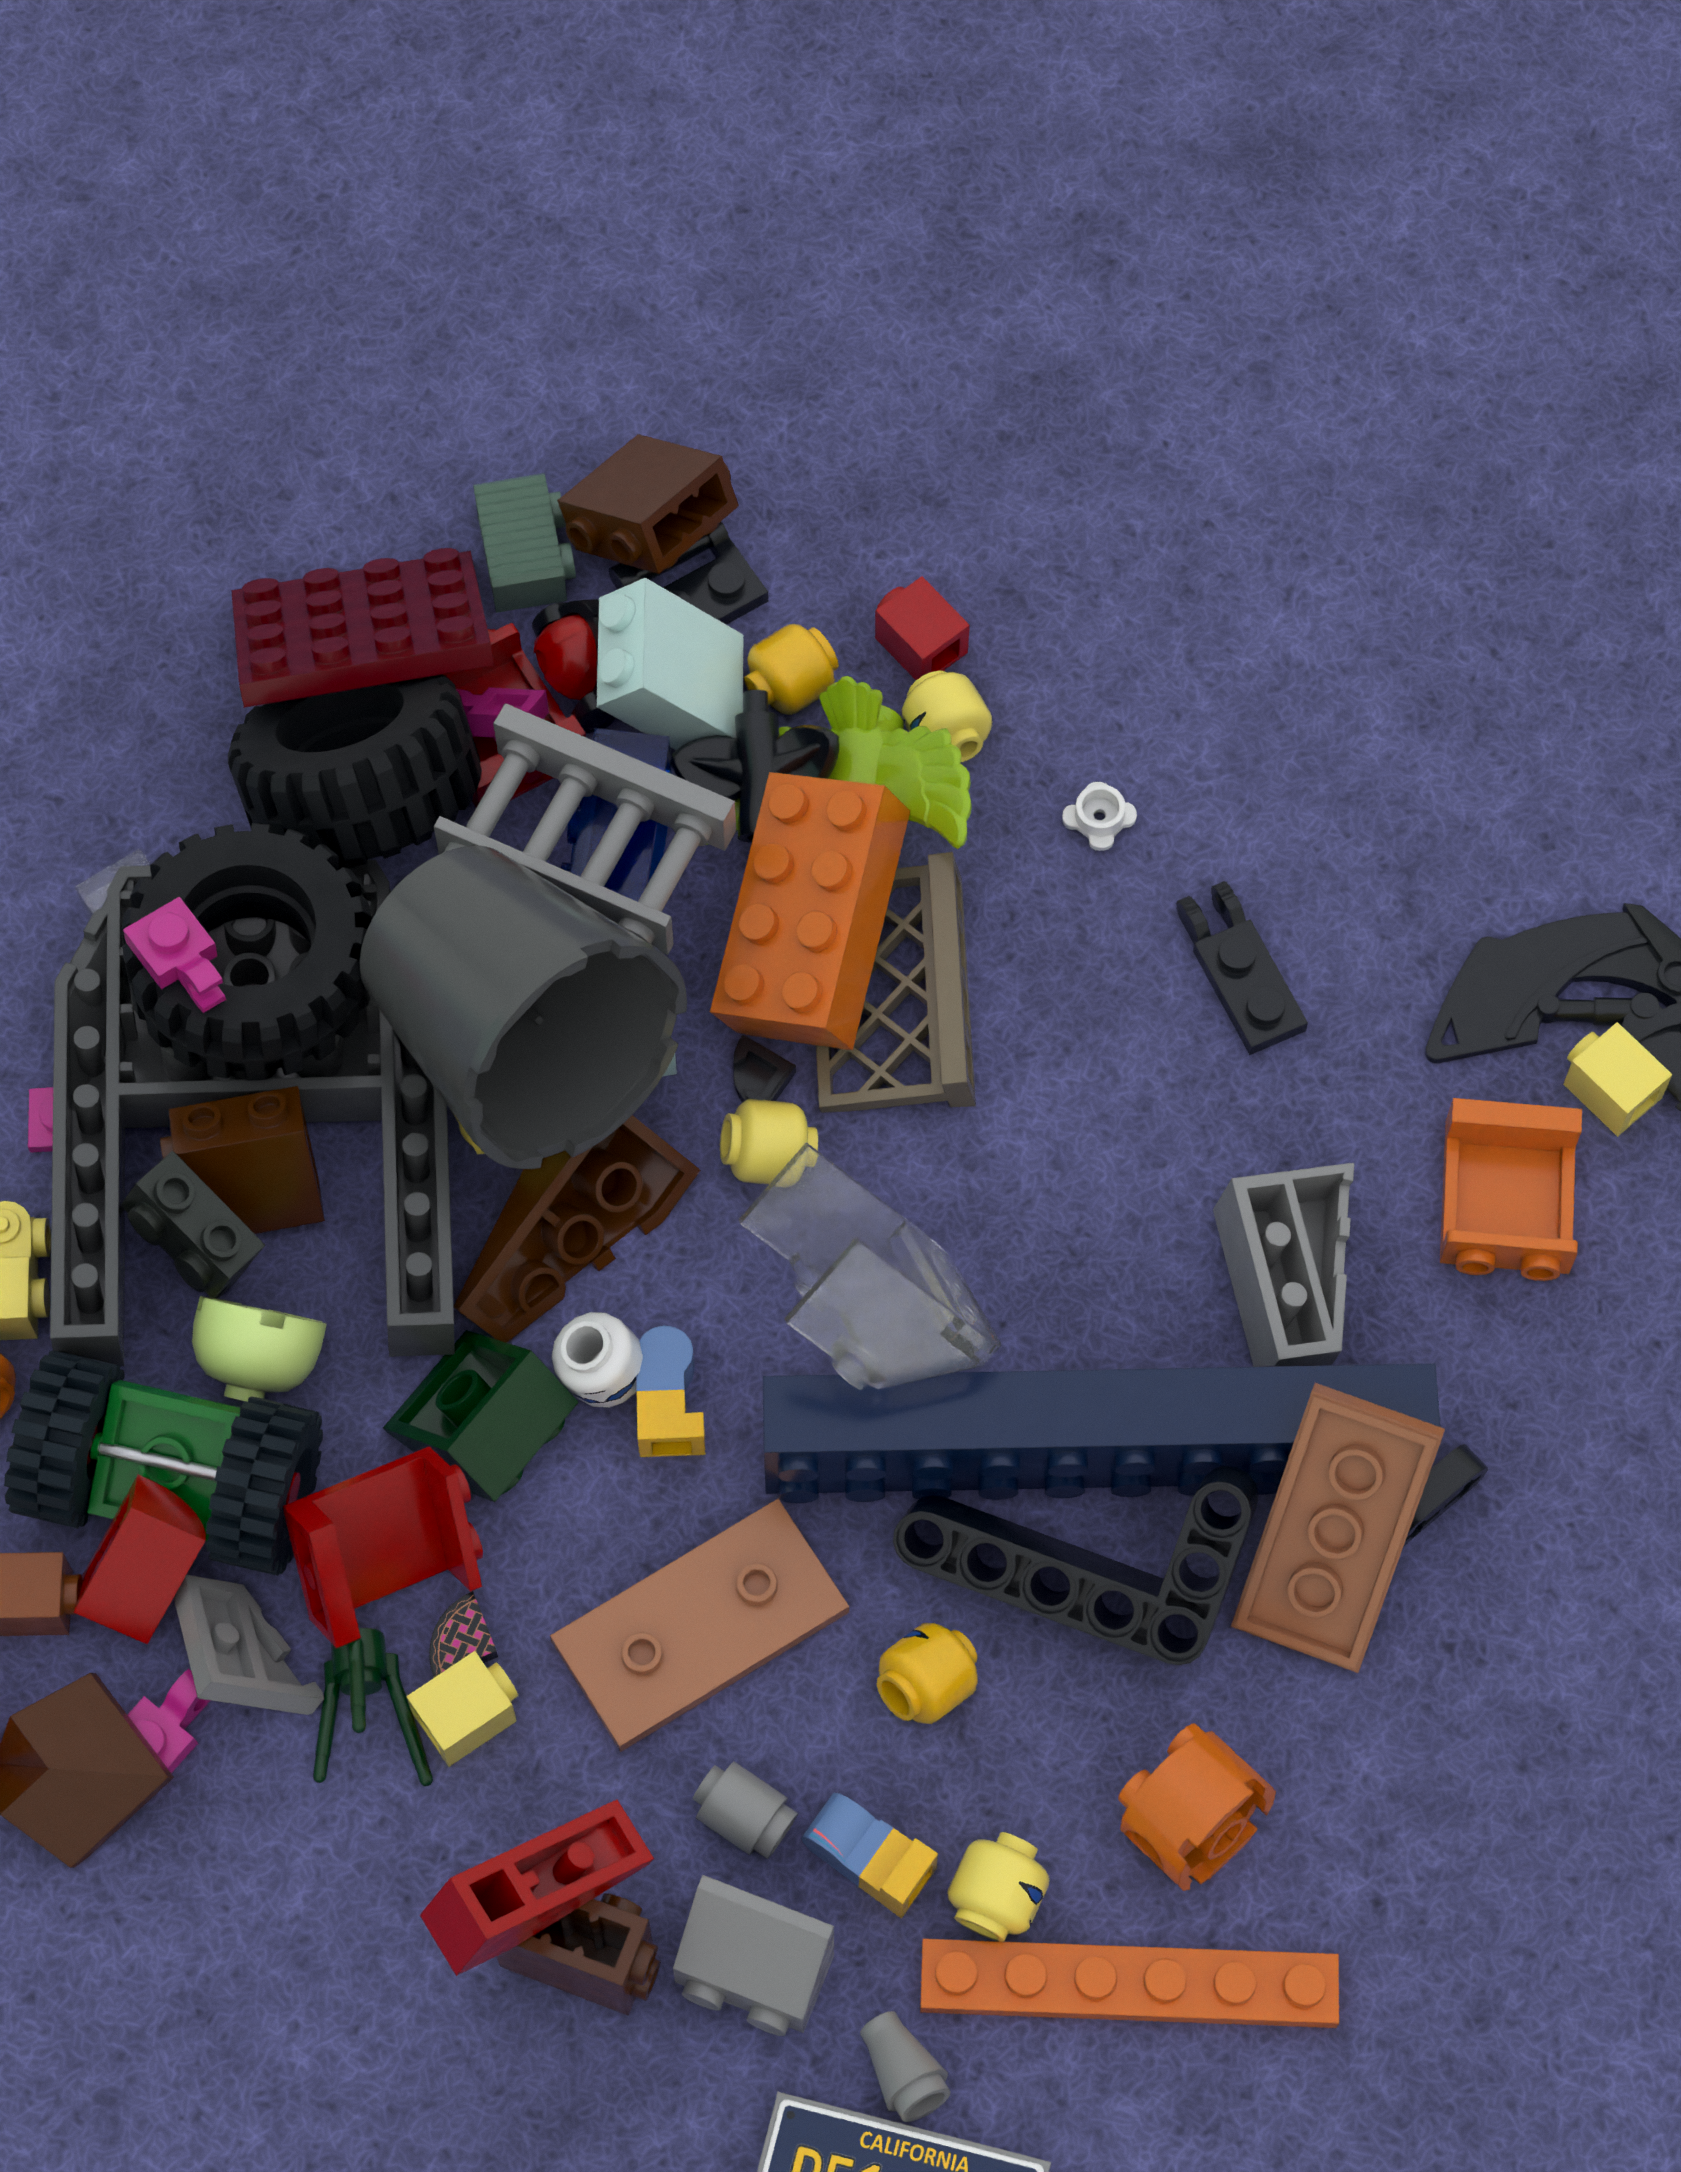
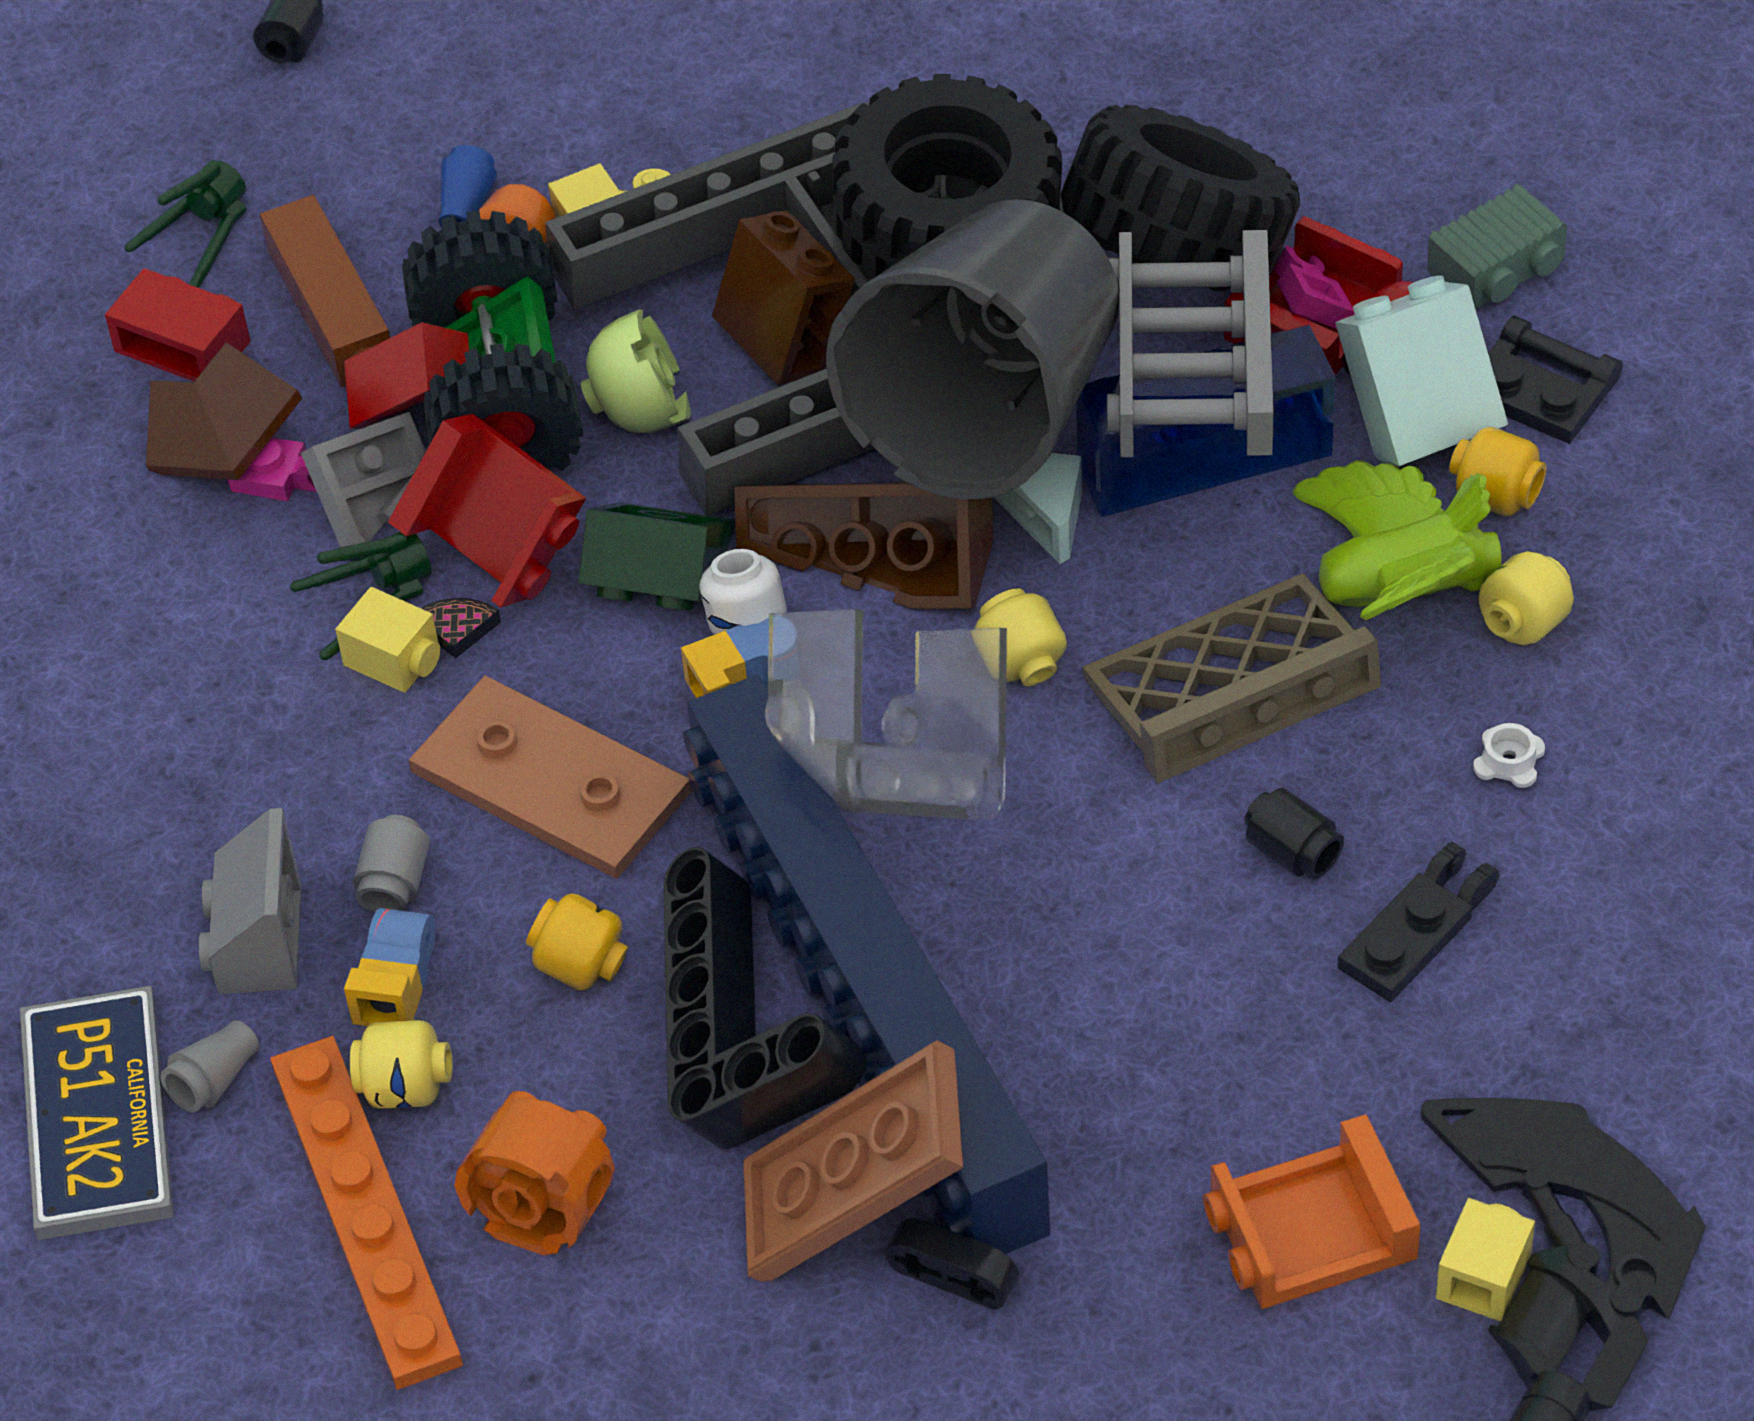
camera: 70 degrees right, 15 degrees down
(177, 948) = (887, 108): dark pink plate -> none
(192, 1226) = (691, 281): pearl dark grey plate -> none
(359, 627) = (1316, 155): dark red plate -> none
(533, 1886) = (205, 677): red slope -> none
(593, 1953) = (203, 768): reddish brown brick -> none
(648, 503) = (1582, 300): reddish brown brick -> none
(742, 764) = (1370, 474): black plant -> none
(760, 1071) = (1091, 617): black tile -> none
(810, 910) = (1247, 557): orange brick -> none
(921, 629) = (1604, 547): red brick -> none
(1106, 1020) = (1293, 833): none -> black brick
(1287, 1261) = (1119, 1055): light grey wedge -> none

